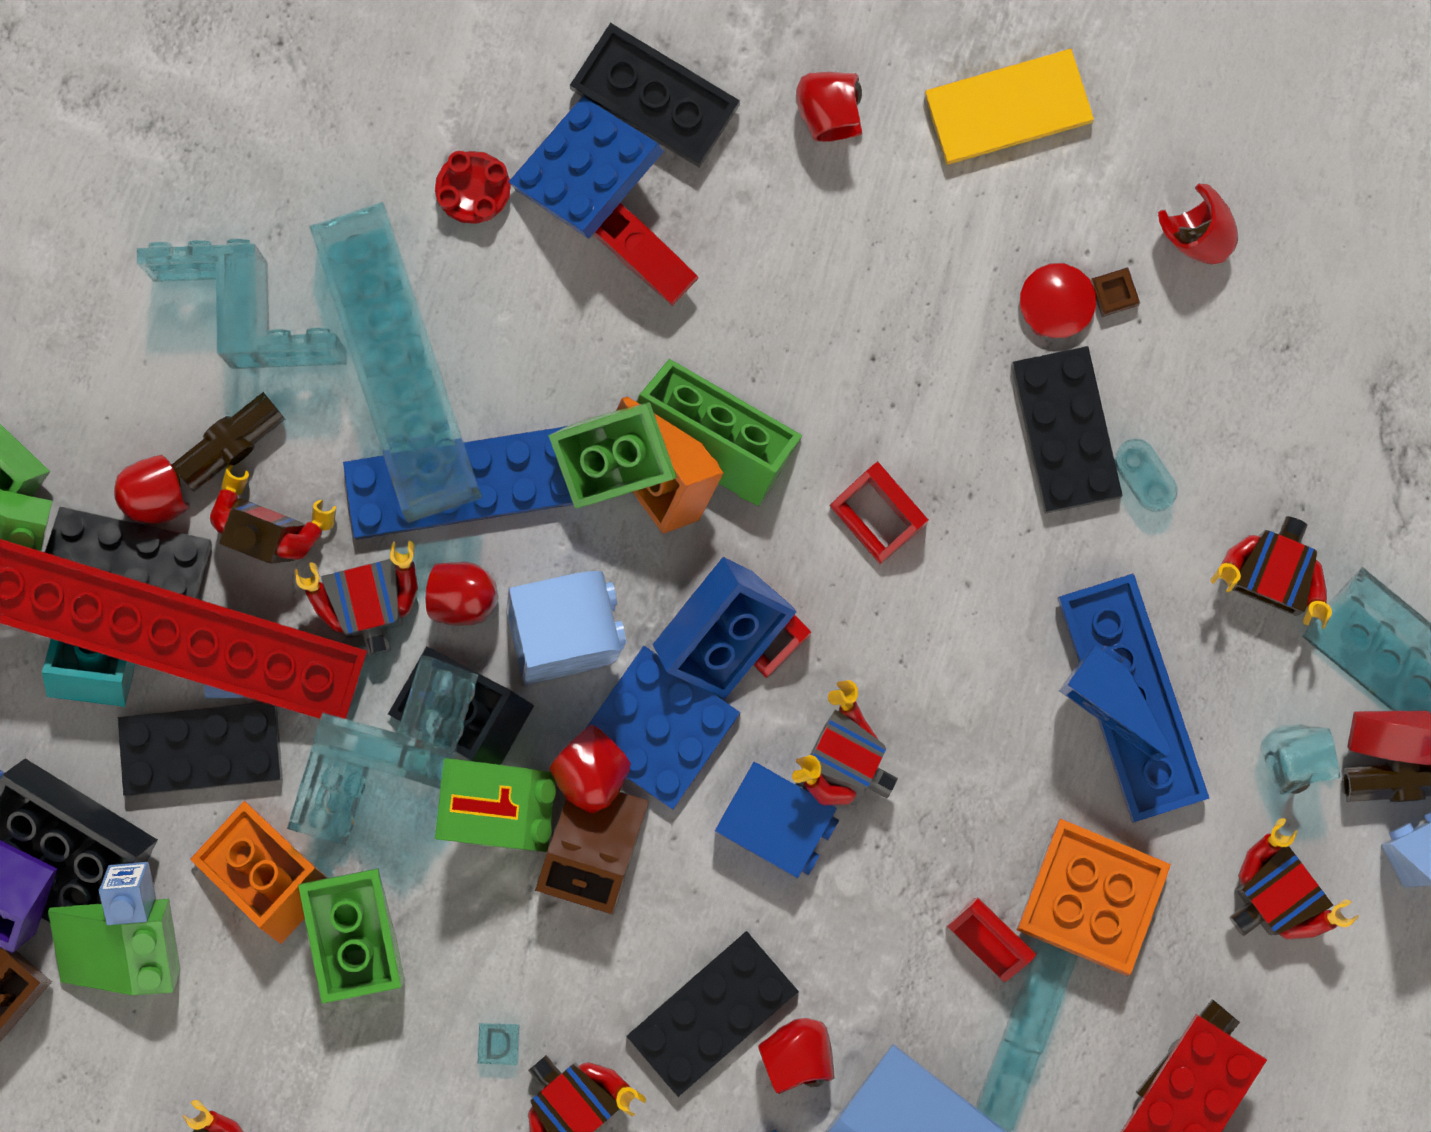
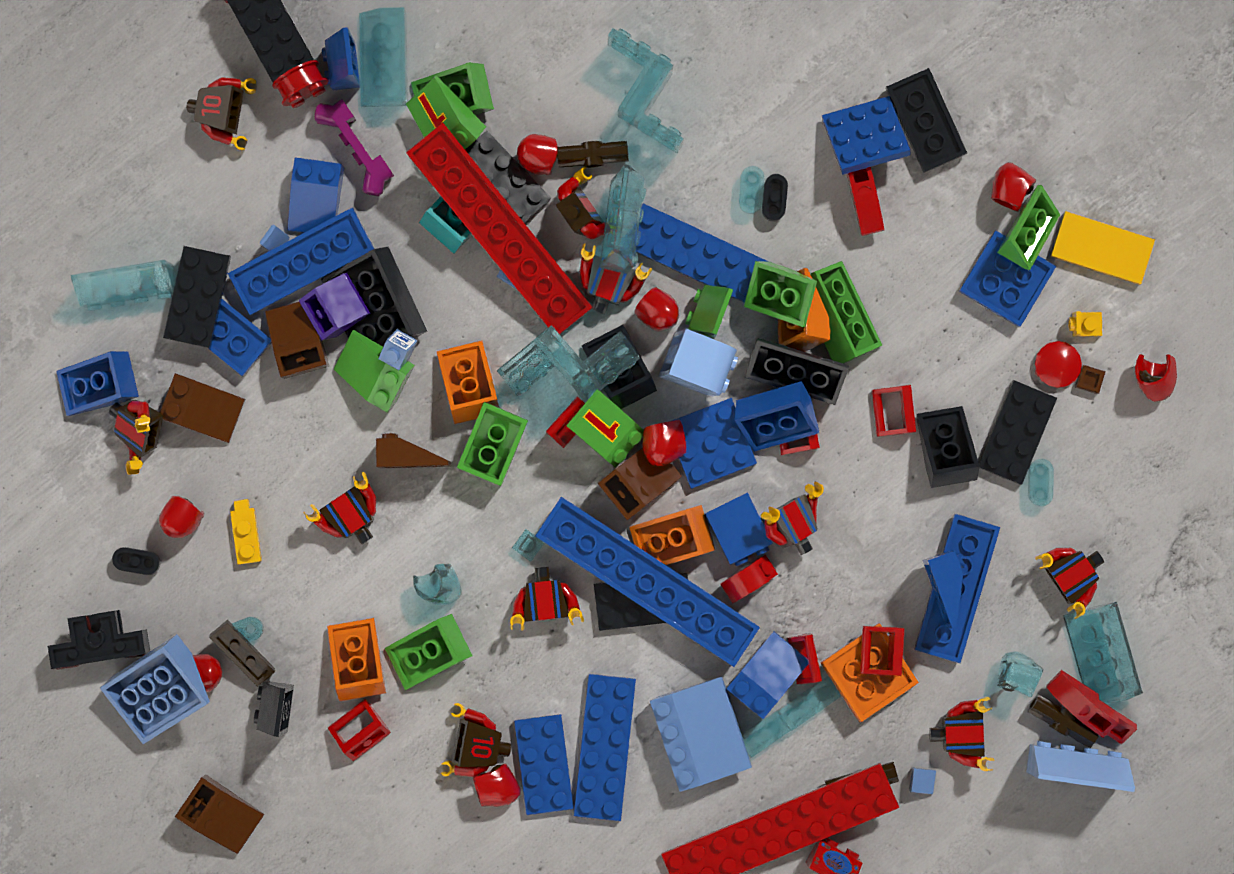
camera: 30 degrees right, 5 degrees up
(199, 748) = (477, 299): black plate -> none
(224, 1040) = (399, 453): none -> reddish brown slope
(329, 502) = (623, 221): none -> clear light blue slope
(395, 362) = (703, 171): clear light blue brick -> none
(433, 853) = (559, 429): none -> red tile
(472, 187) = (801, 105): red dish -> none
(480, 346) = (751, 190): none -> clear light blue plate
(519, 335) = (774, 198): none -> black plate
(531, 542) = (709, 311): none -> bright green slope
(685, 550) = (784, 366): none -> black slope
(692, 896) = (674, 536): none -> orange slope
(698, 981) = (647, 581): none -> blue plate
(798, 1055) = (671, 650): red piece -> none
(838, 880) = (749, 579): none -> red brick
(894, 144) = (1030, 229): none -> bright green slope
(910, 232) = (1004, 284): none -> blue plate
(956, 997) = (768, 675): none -> slope
(986, 513) = (947, 447): none -> black slope
(1057, 222) = (1085, 324): none -> yellow bracket
(1108, 843) = (895, 651): none -> red tile
(1270, 998) = (922, 780): none -> medium blue slope

